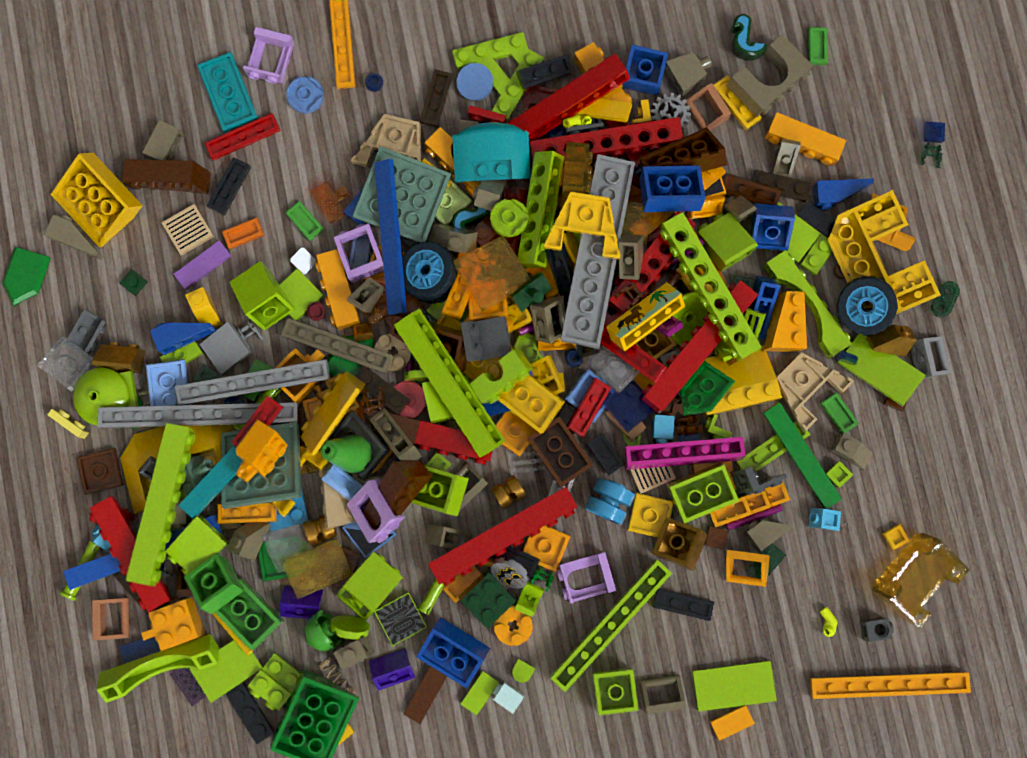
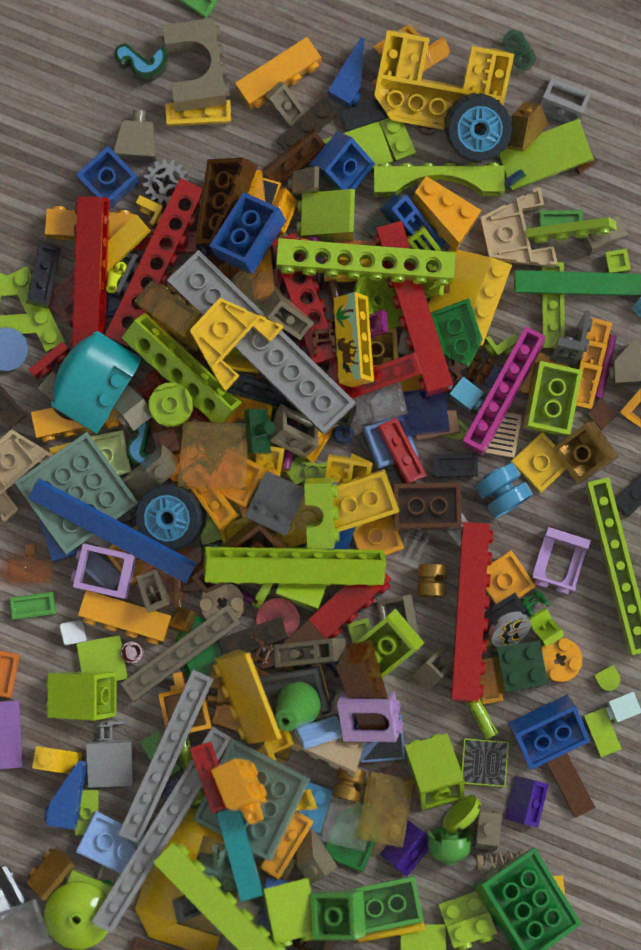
camera: 55 degrees left, 0 degrees up
(205, 374) = (124, 800): clear green plate -> none
(716, 103) = (190, 132): nougat tile -> none
(843, 429) = (579, 229): none -> lime plate

